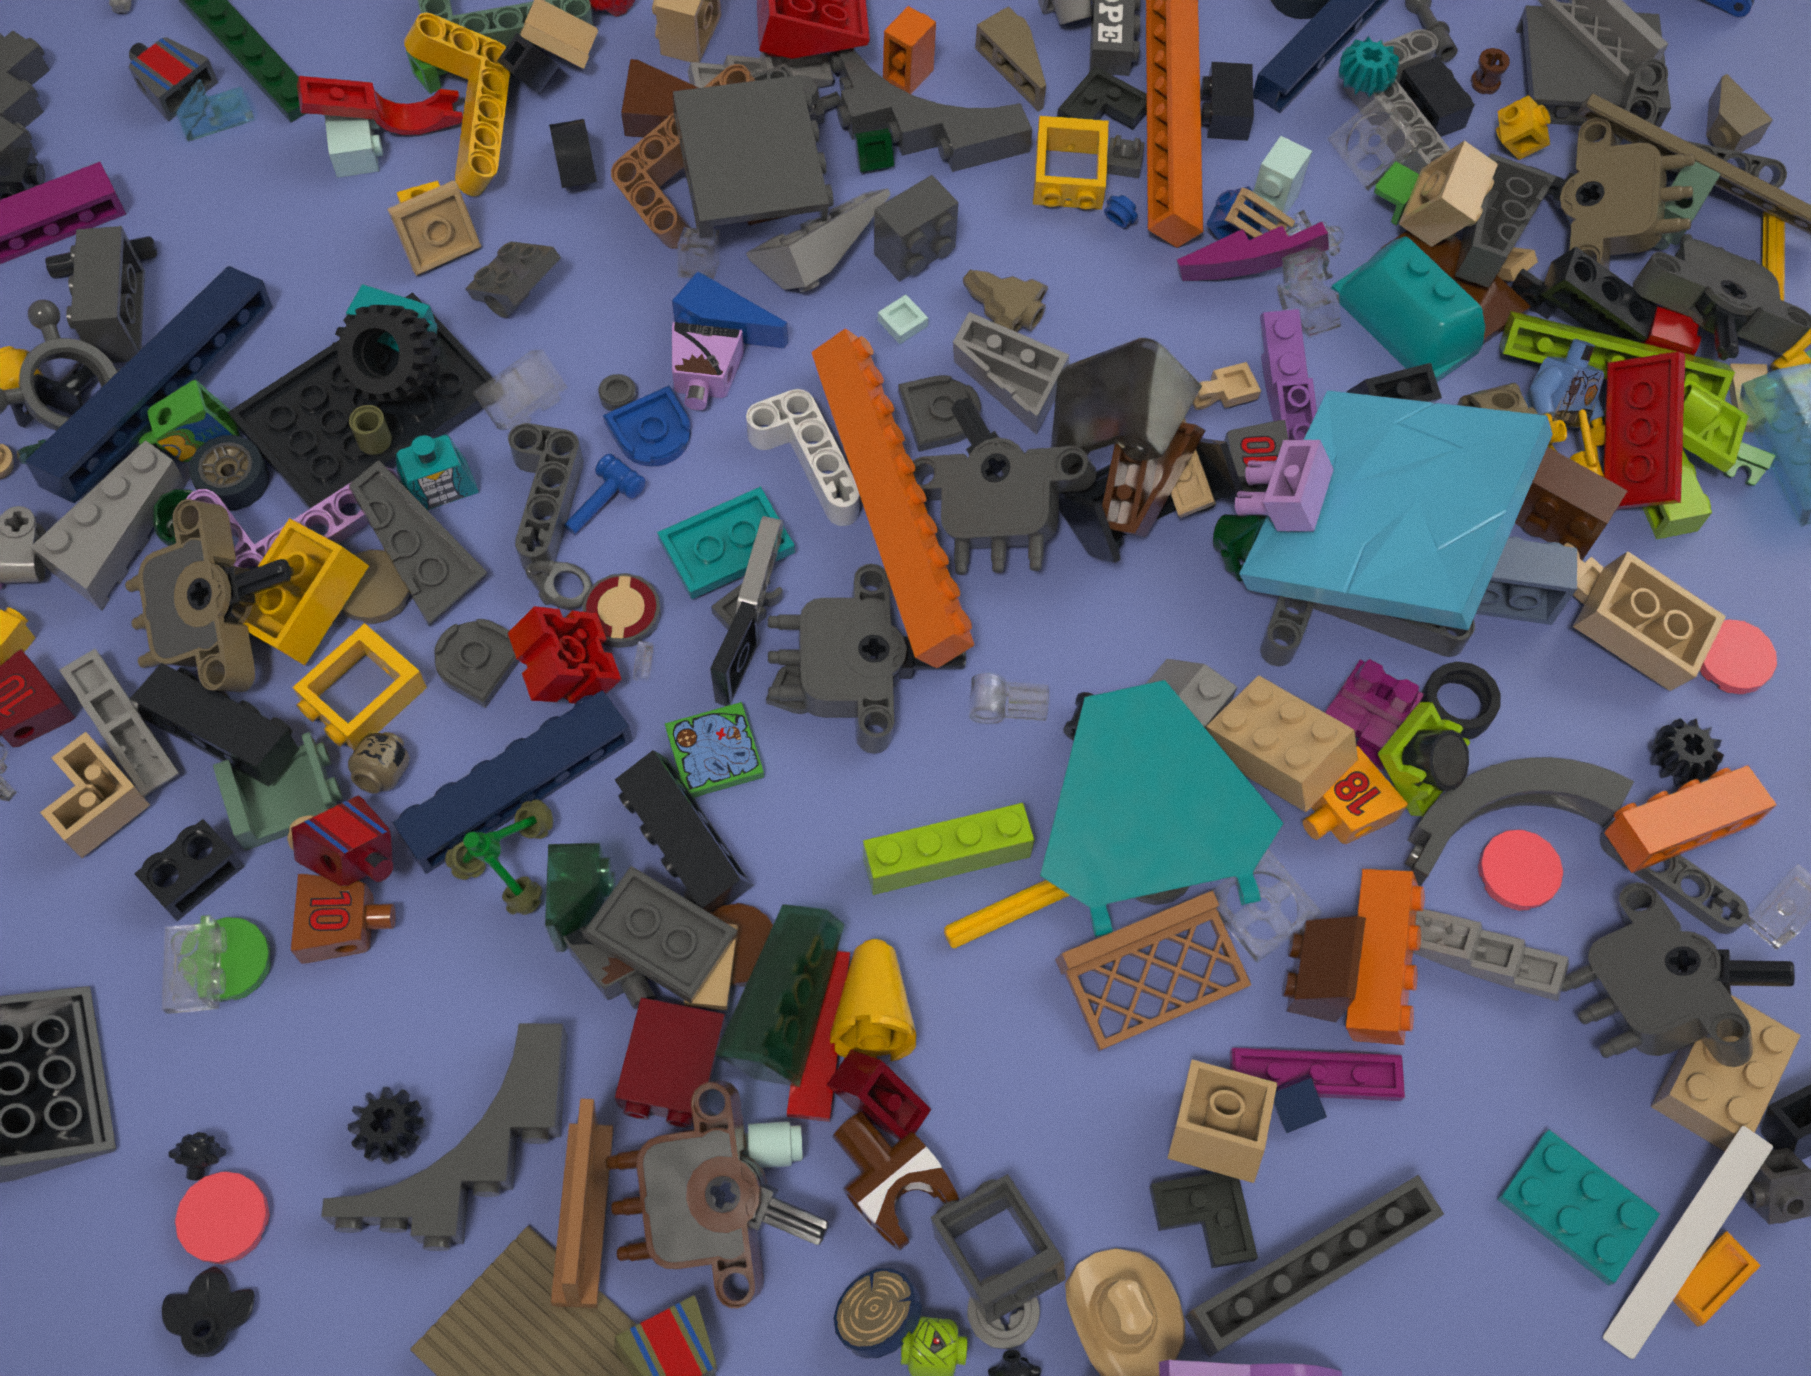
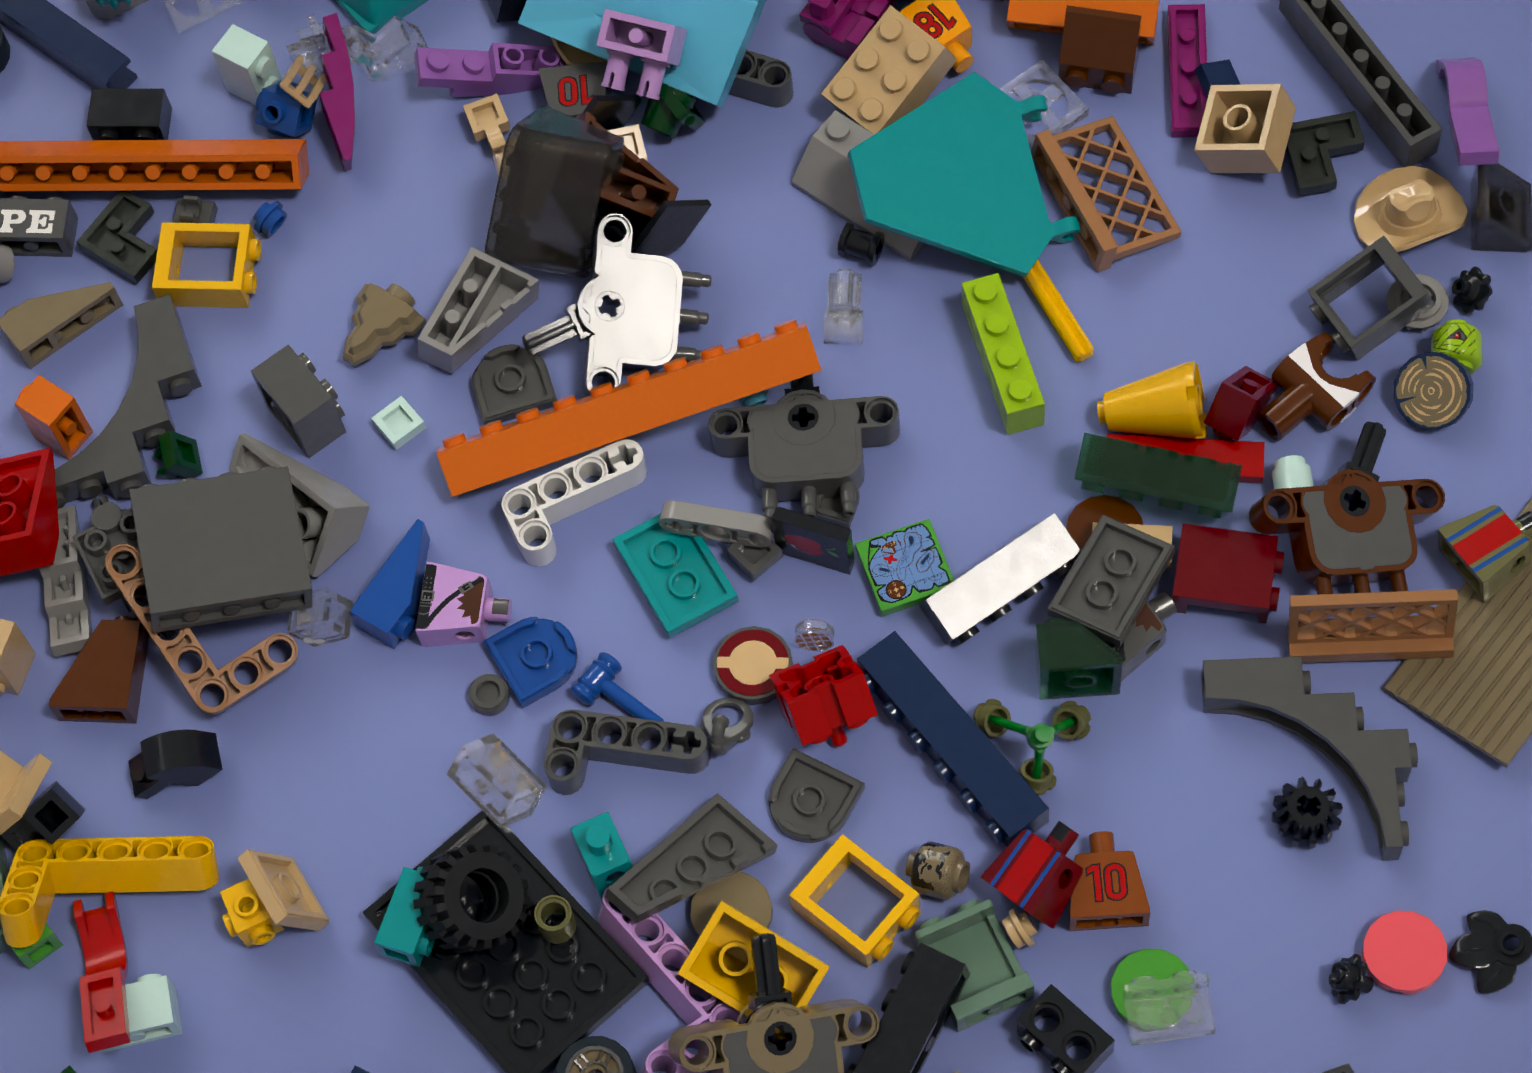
camera: 80 degrees left, 0 degrees up
(511, 276) = (342, 807): dark grey plate -> none

